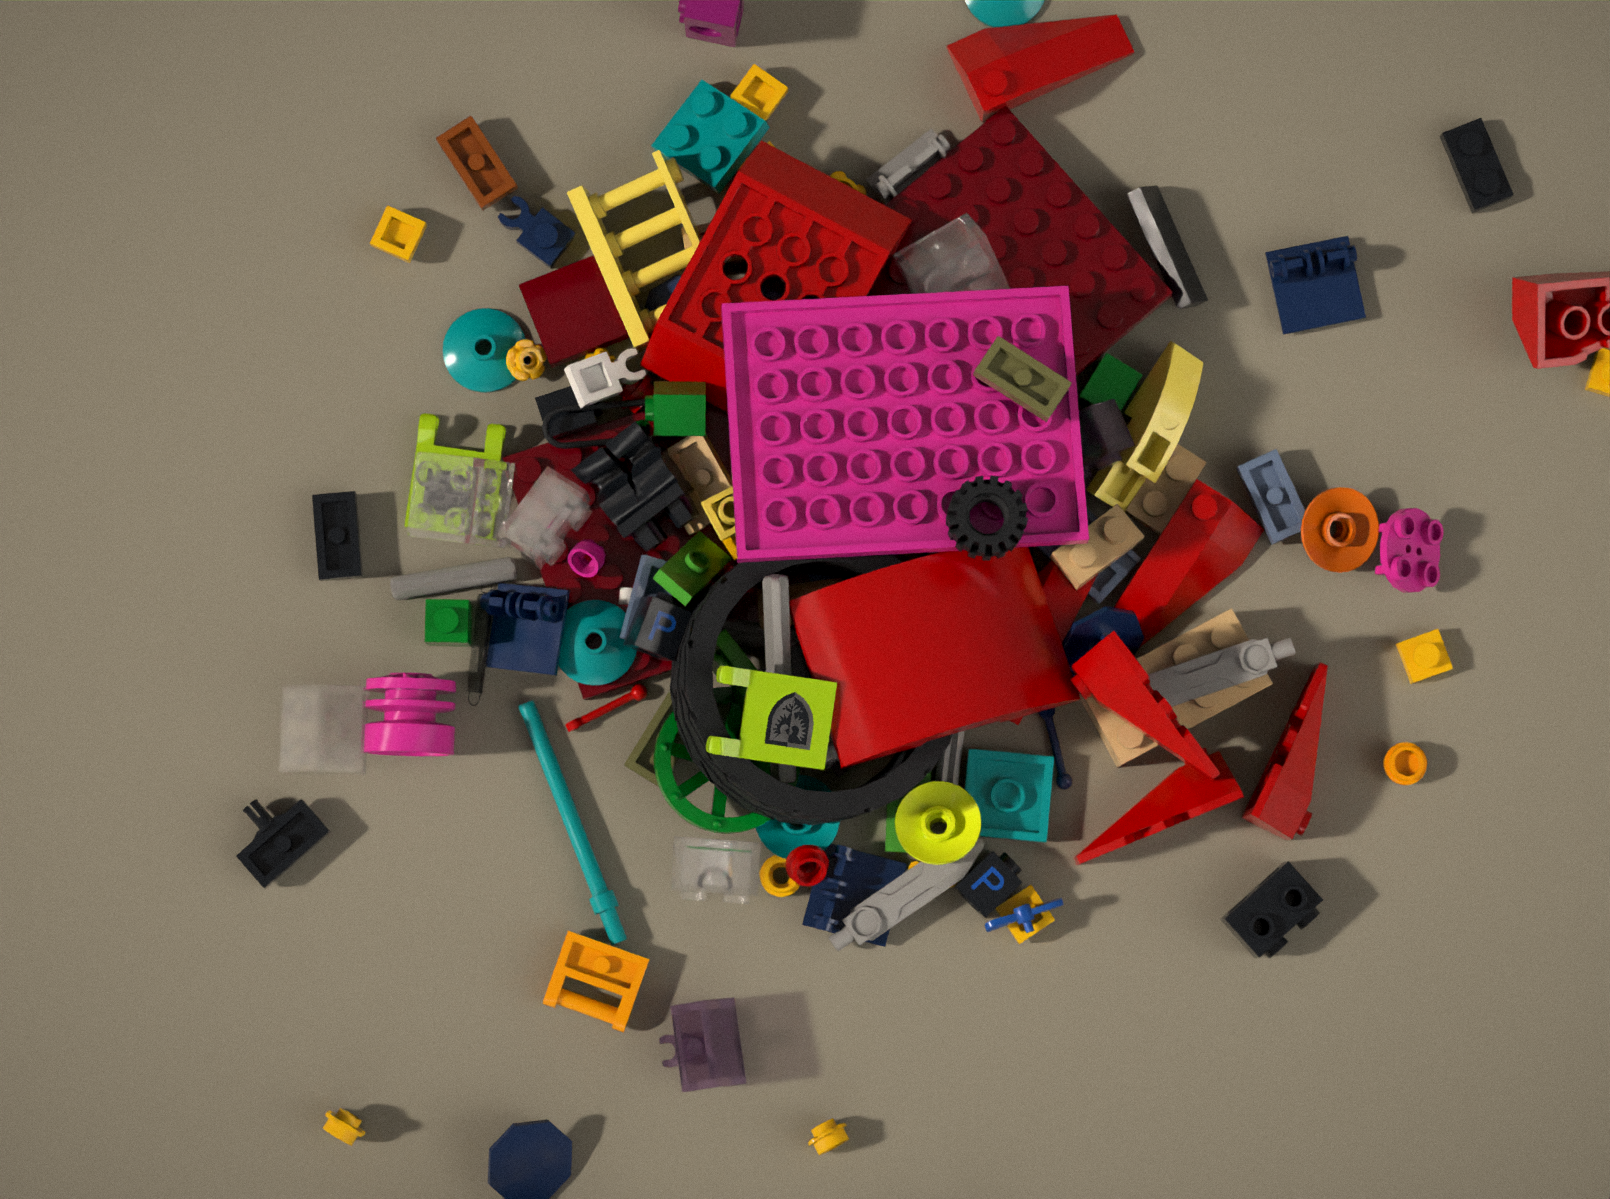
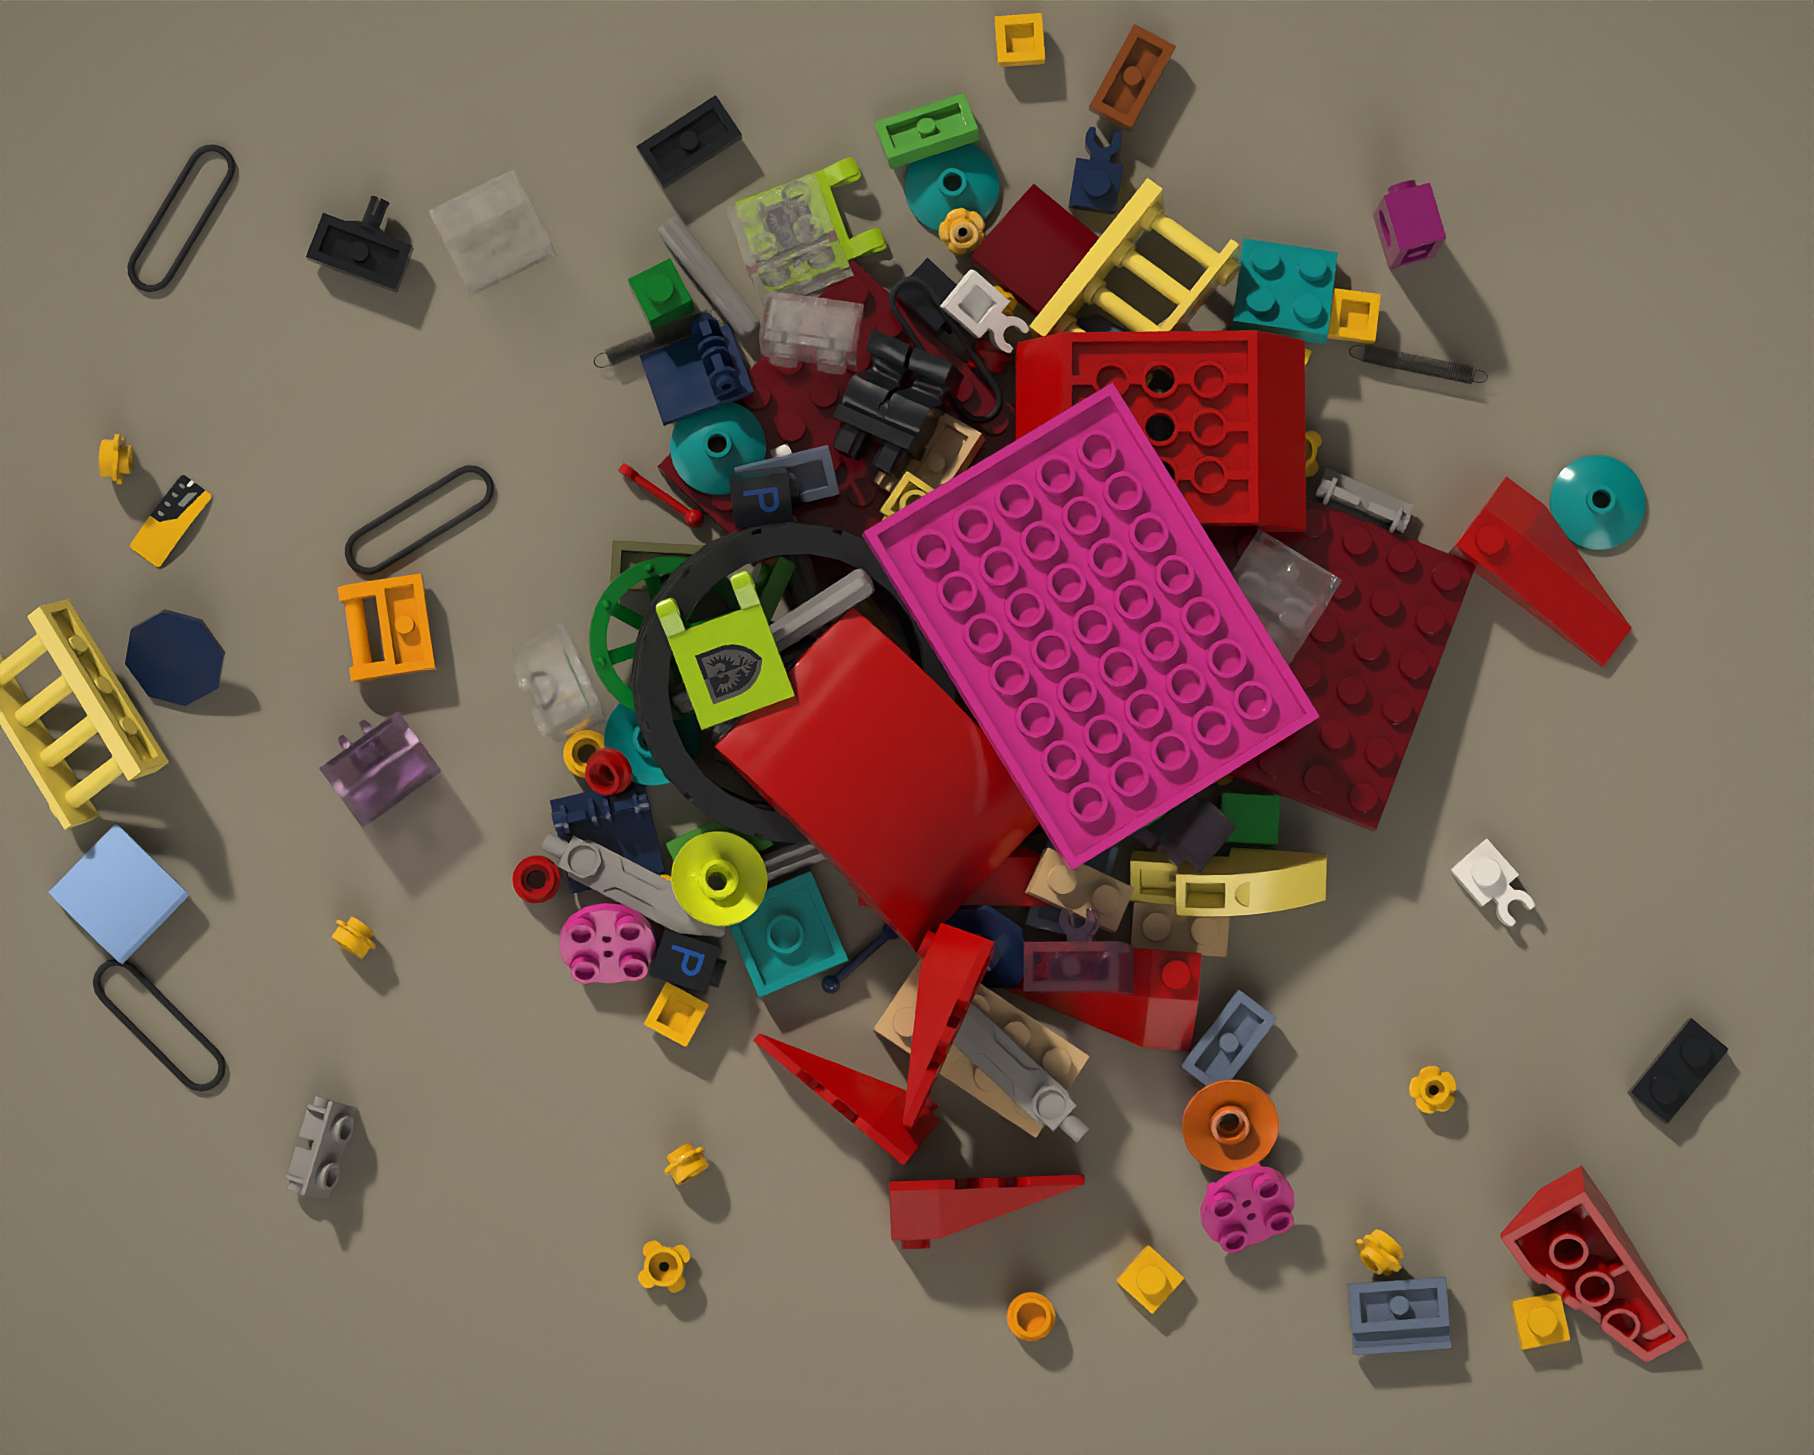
camera: 60 degrees right, 0 degrees up
(190, 961) = (132, 261): none -> black piece
(409, 716) = (547, 304): dark pink wheel -> none
(415, 1109) = (170, 520): none -> yellow sticker
(431, 344) = (927, 130): none -> bright green plate
(540, 910) = (468, 468): none -> black piece
(581, 565) = (786, 393): dark pink hinge -> none
(602, 900) = (470, 592): teal bar -> none
(677, 408) = (990, 400): green brick -> none
(692, 568) = (838, 499): bright green plate -> none
(828, 64) = (1419, 371): none -> black piece
(869, 958) = (521, 875): none -> red plate
(942, 938) = (586, 947): none -> dark pink plate
(993, 492) = (1066, 747): black tyre -> none
(1022, 378) = (1197, 717): olive plate -> none
(1023, 915) = (672, 1012): blue piece -> none
(1145, 968) = (686, 1163): none -> yellow plate
(1157, 576) = (1079, 963): none -> brick
(1167, 246) = (1422, 802): black tile -> none
(1228, 1029) = (653, 1275): none -> yellow plate
(1250, 229) = (1487, 877): none -> white plate
(1272, 911) = (811, 1260): black brick -> none
(1315, 284) = (1466, 972): dark blue hinge -> none
(1390, 370) = (1420, 1092): none -> yellow plate
(1498, 468) = (1380, 1253): none -> yellow plate
(1553, 479) = (1399, 1315): none -> sand blue plate

